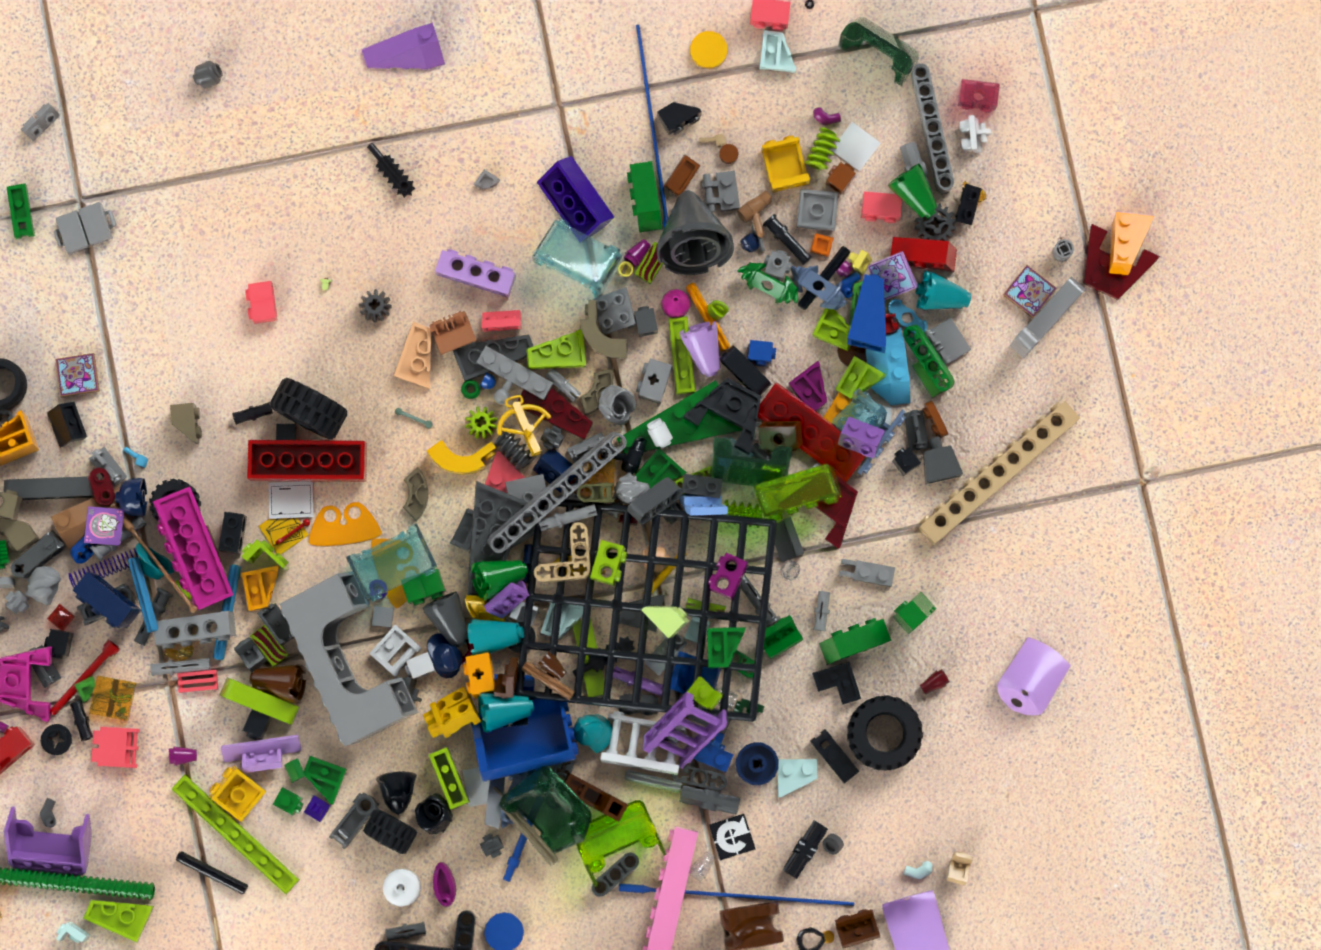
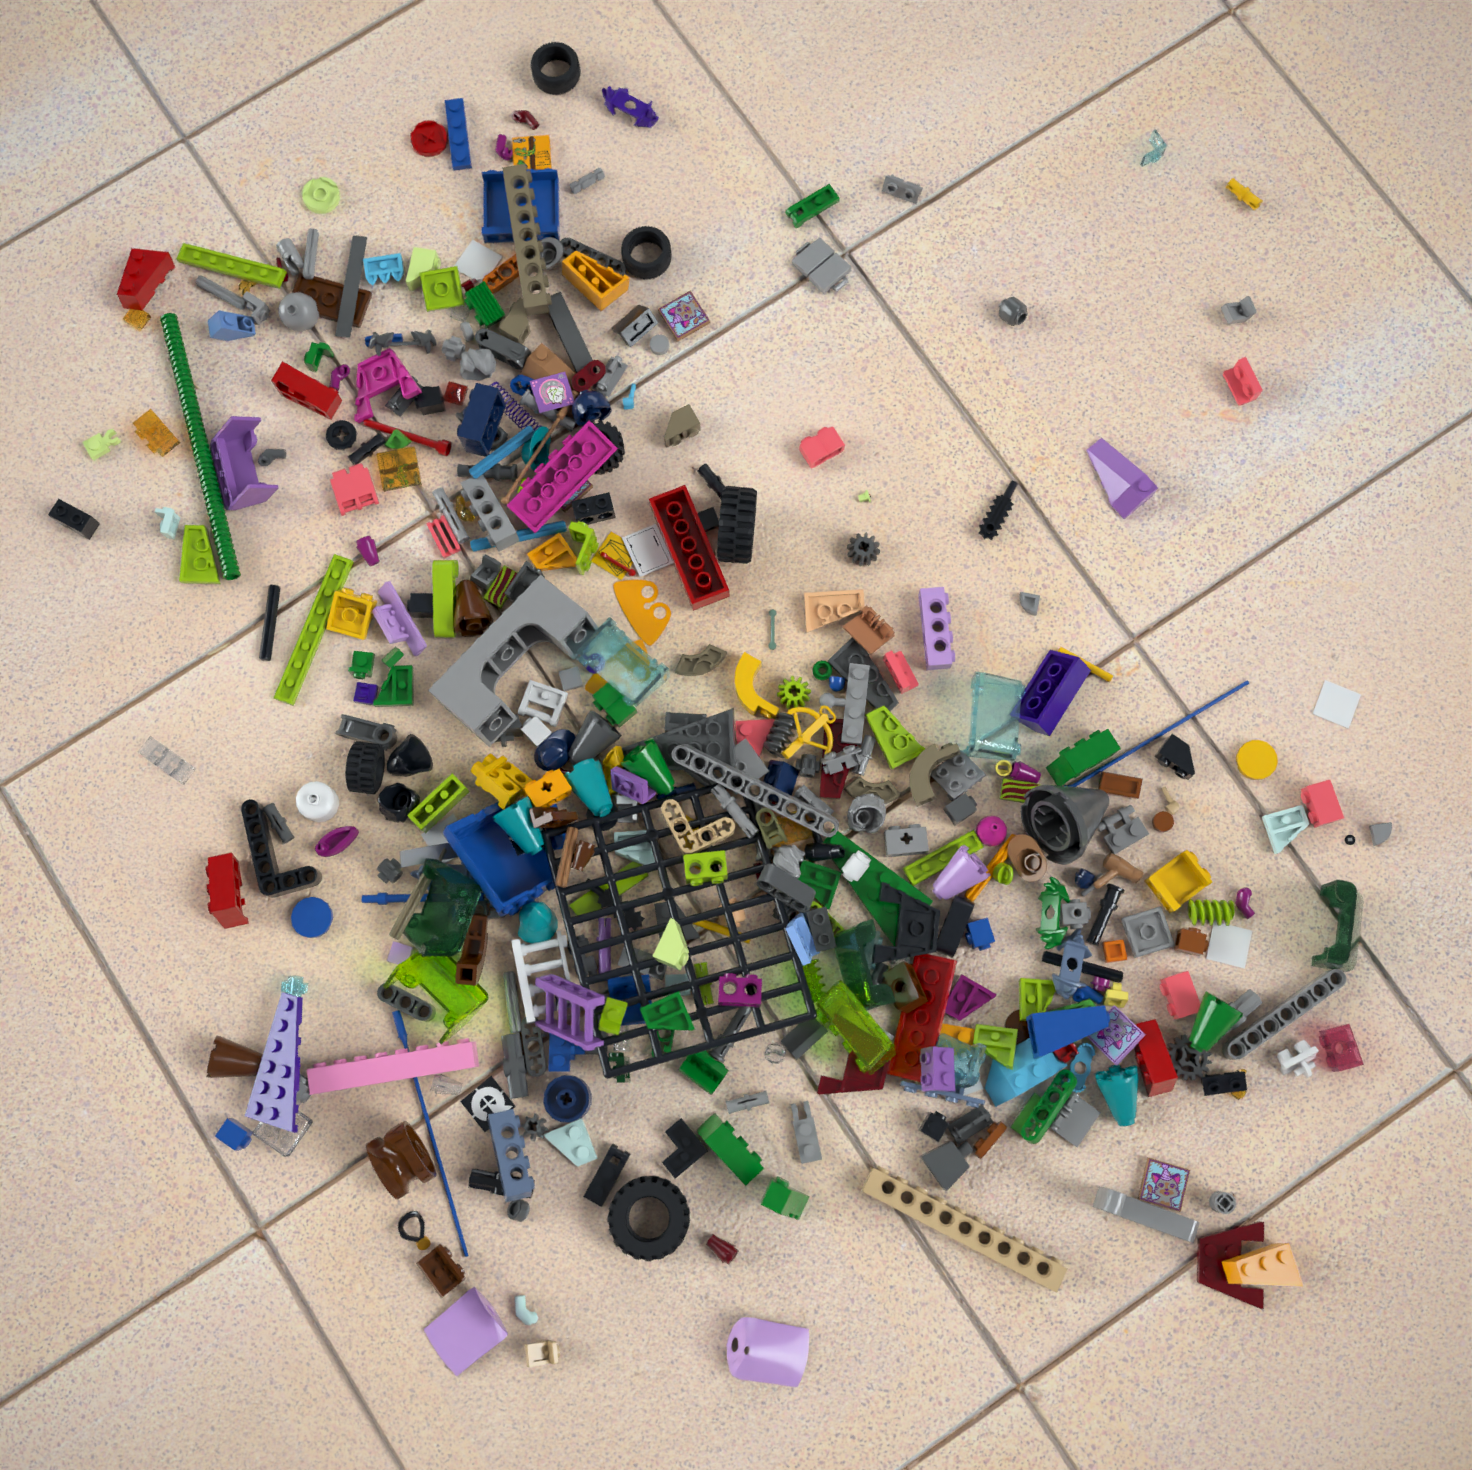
camera: 70 degrees right, 5 degrees down
(96, 409) = (659, 344): none -> light grey tile
(558, 414) = (848, 755): none -> light grey hinge
(569, 152) = (1094, 669): none -> yellow bar
(570, 864) = (399, 953): none -> lavender tile
(713, 283) = (1027, 858): none -> medium nougat piece
(767, 807) = (528, 1126): none -> dark grey gear
(813, 840) = (512, 1188): none -> sand blue brick

